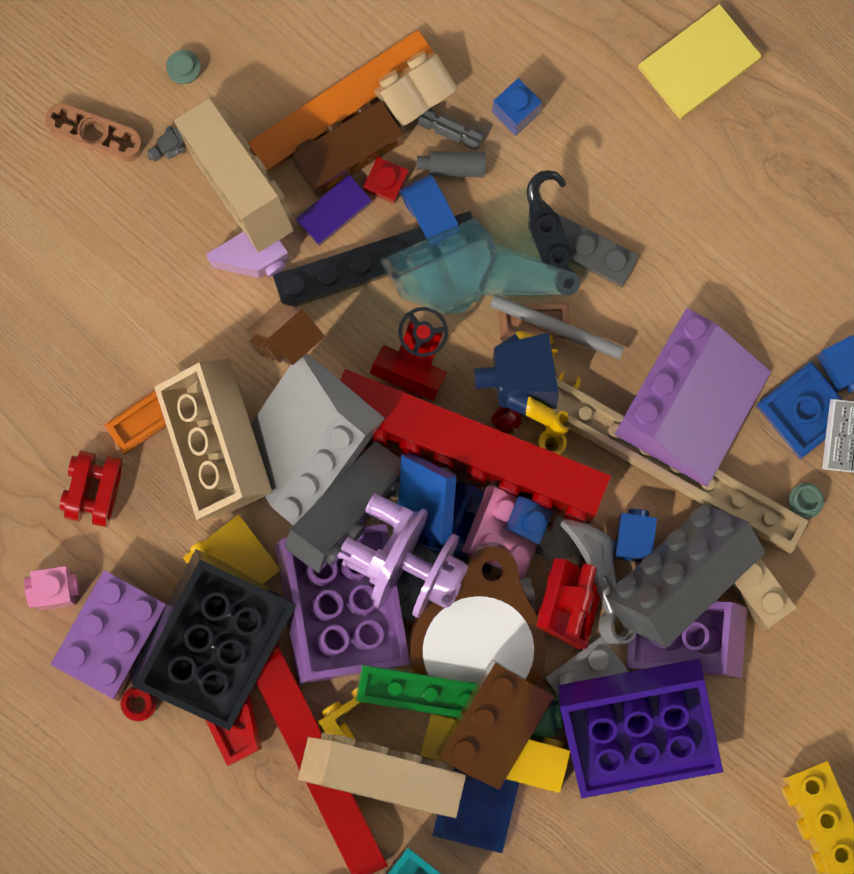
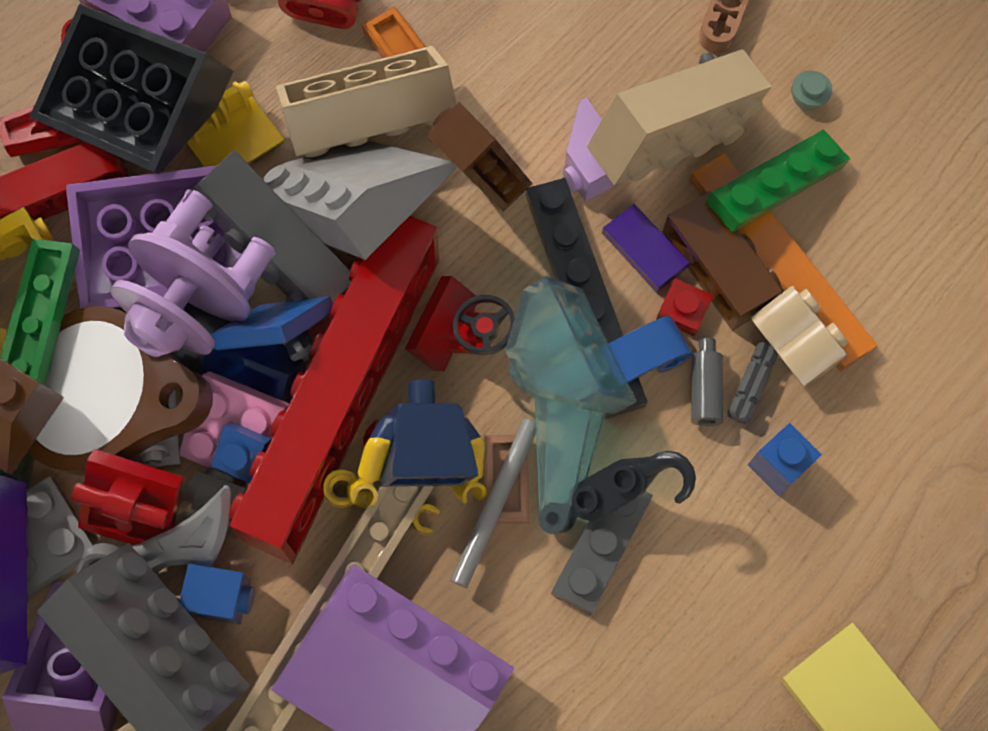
camera: 90 degrees right, 10 degrees down
(277, 98) = (777, 180): none -> green plate

